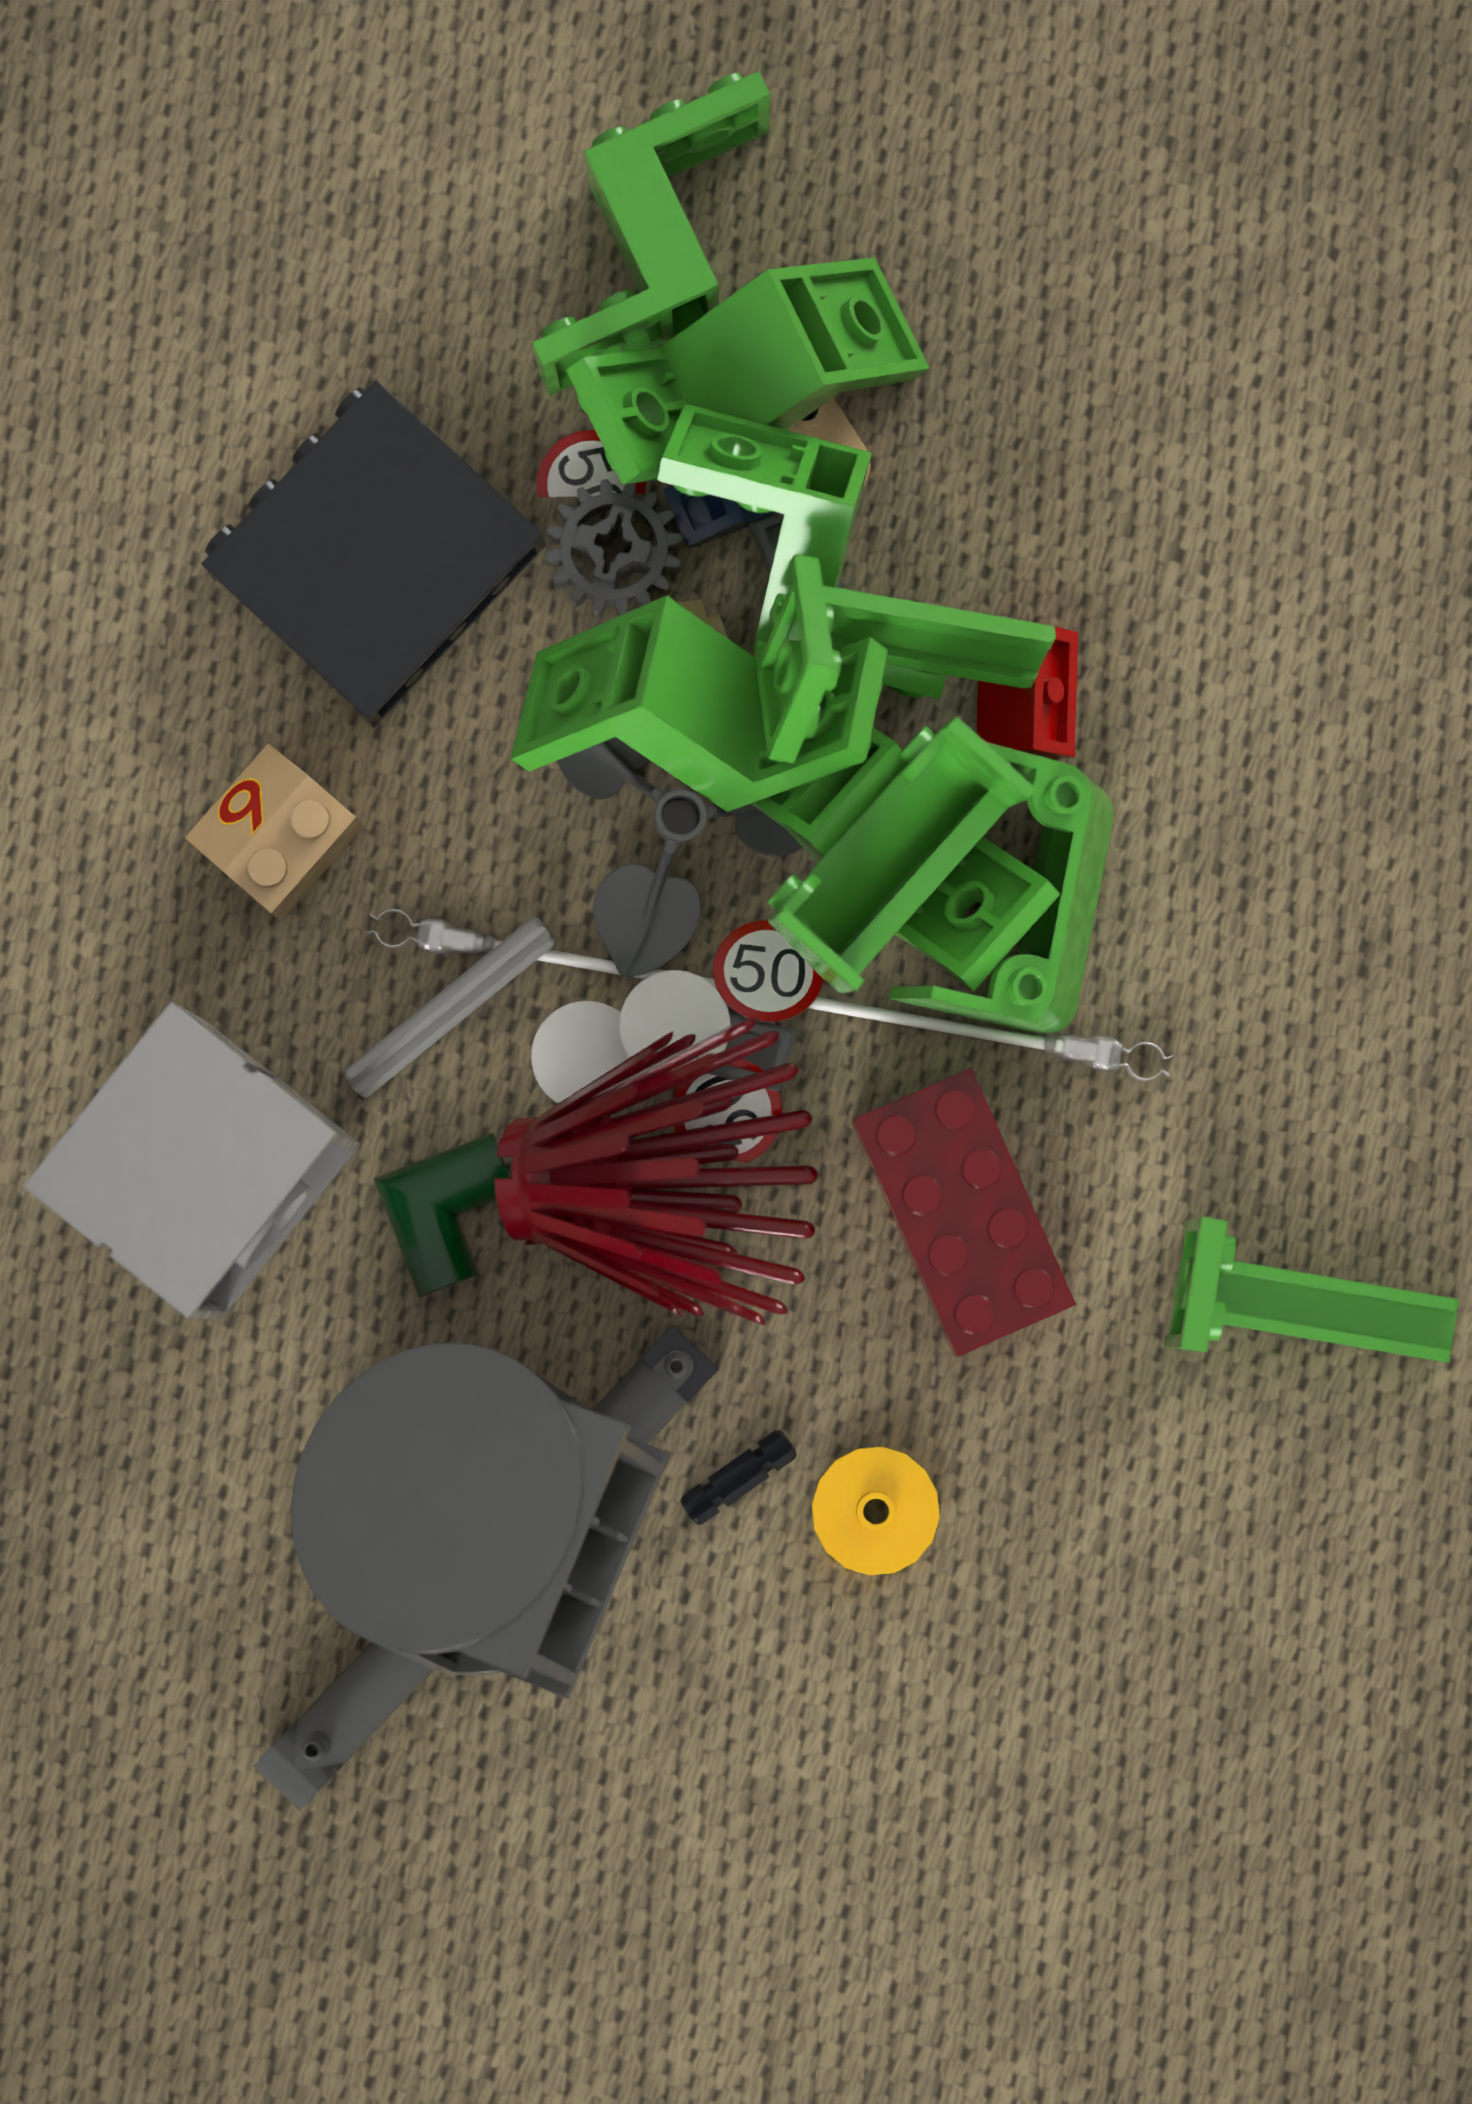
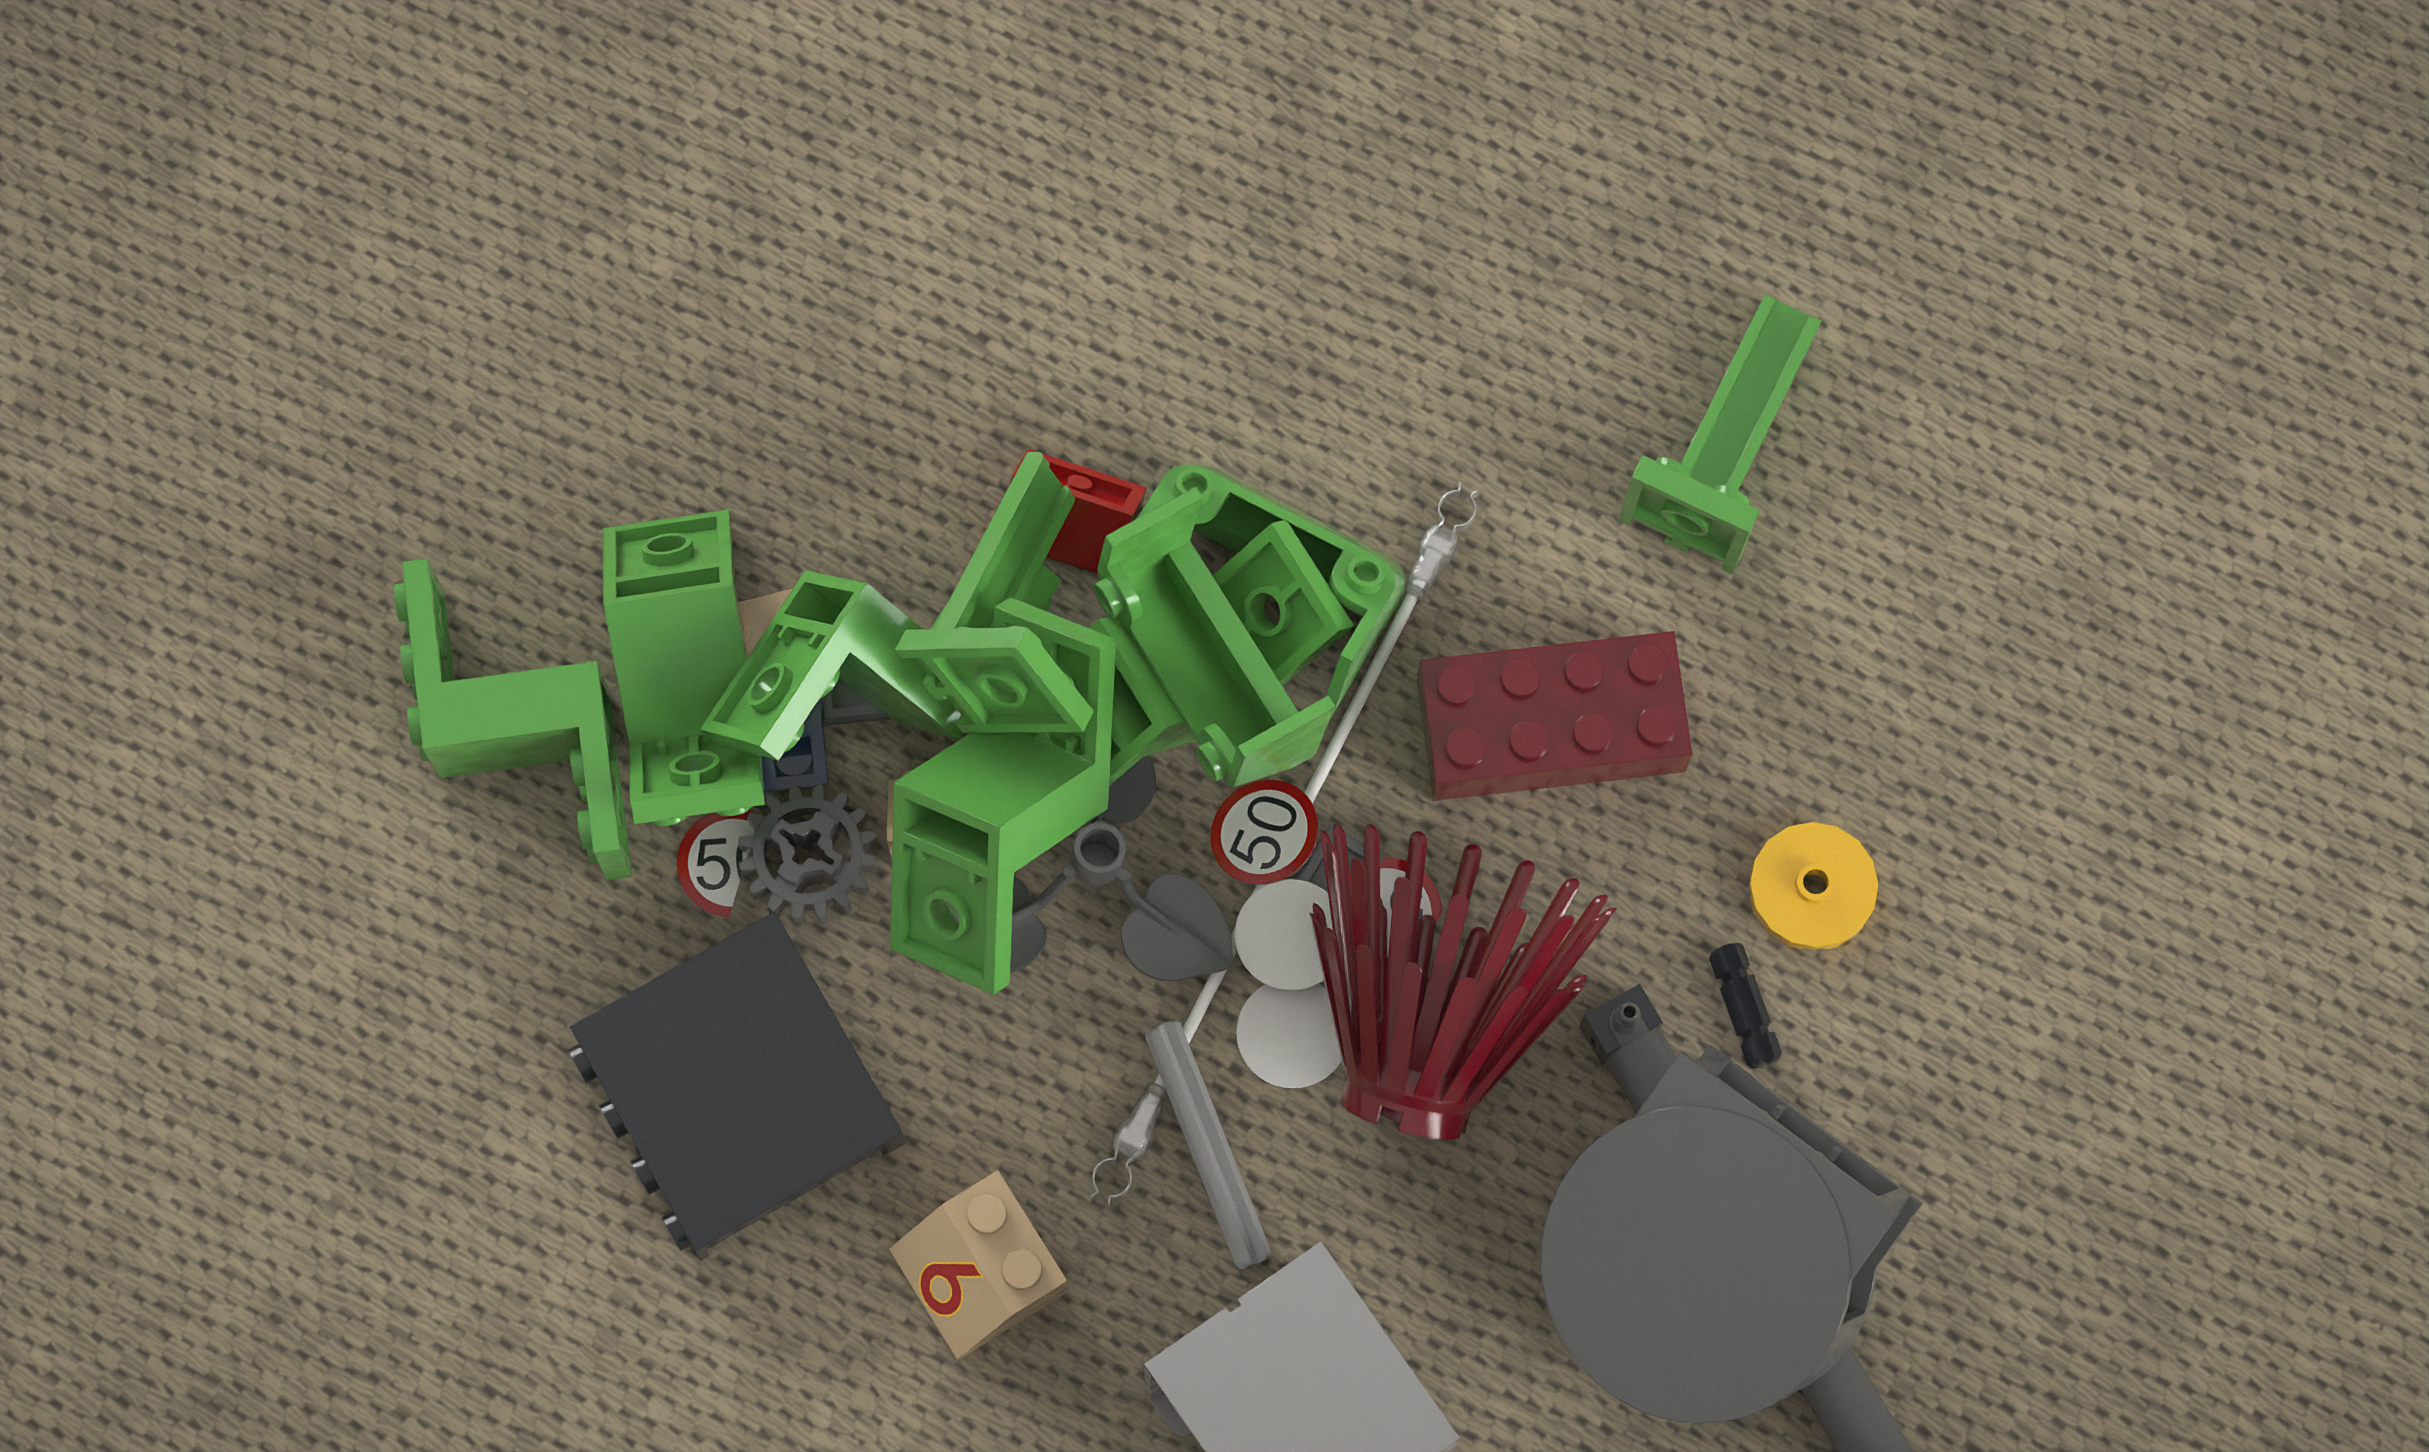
camera: 80 degrees left, 10 degrees down
(425, 1204) = (1392, 1229): dark green brick -> none

